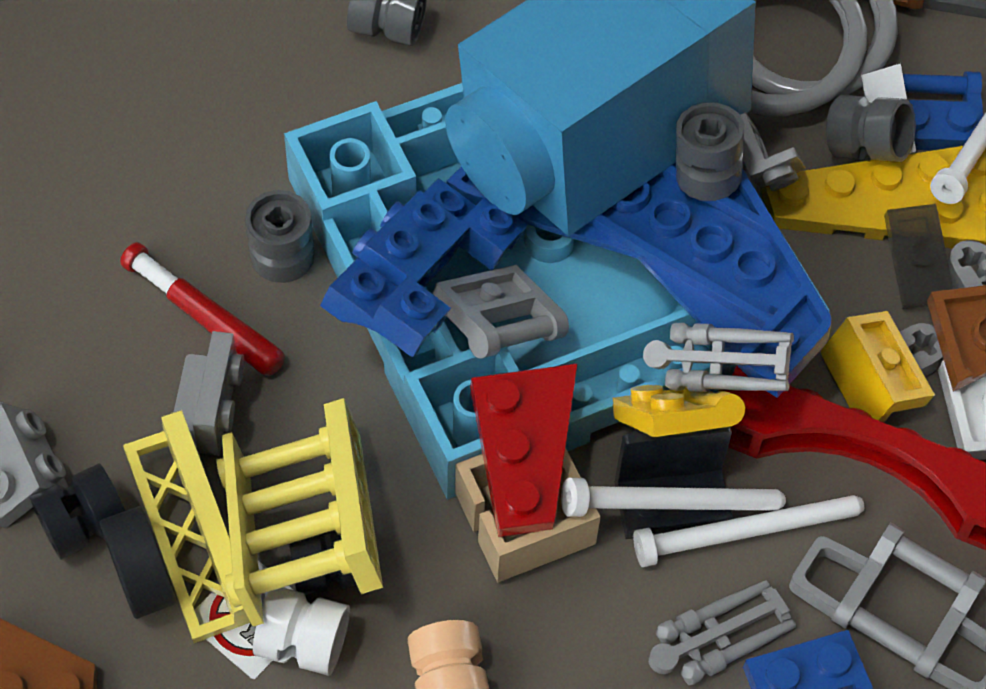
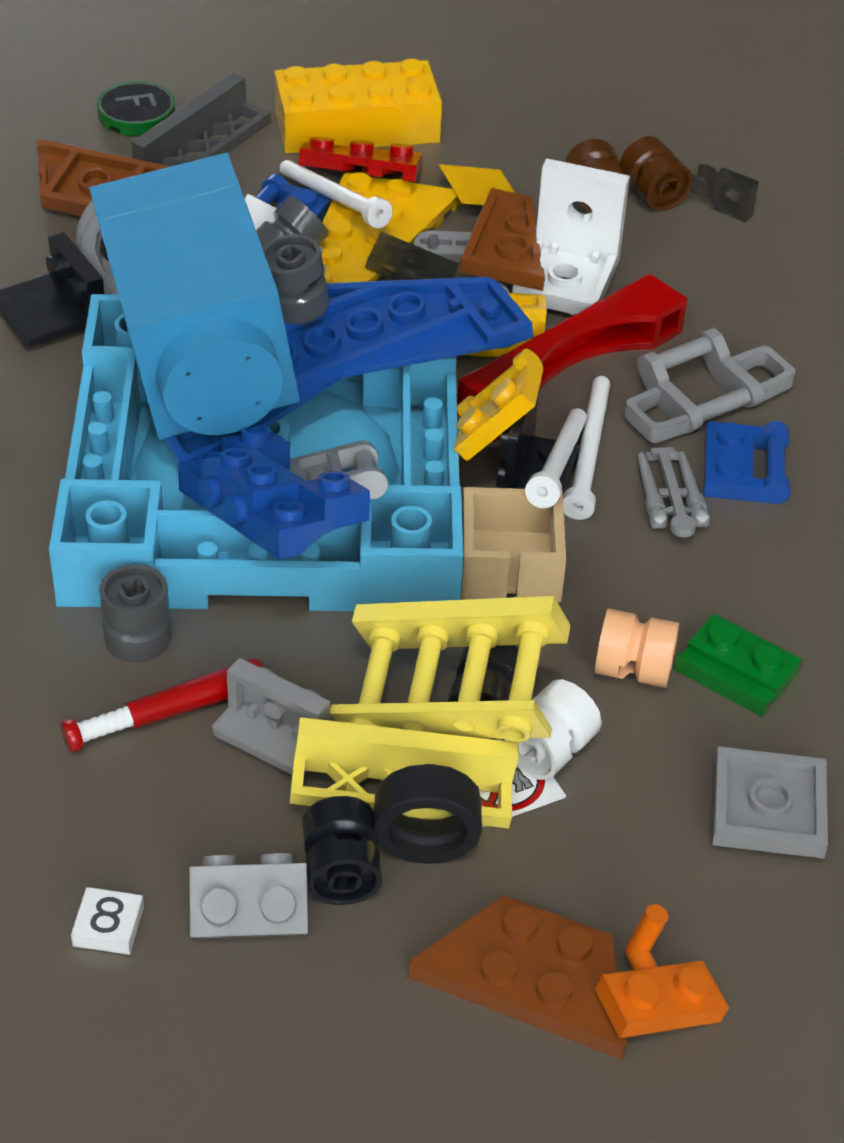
camera: 65 degrees left, 15 degrees down
(523, 443) = (478, 501): red wing -> none
(660, 355) = (449, 389): light grey piece -> none

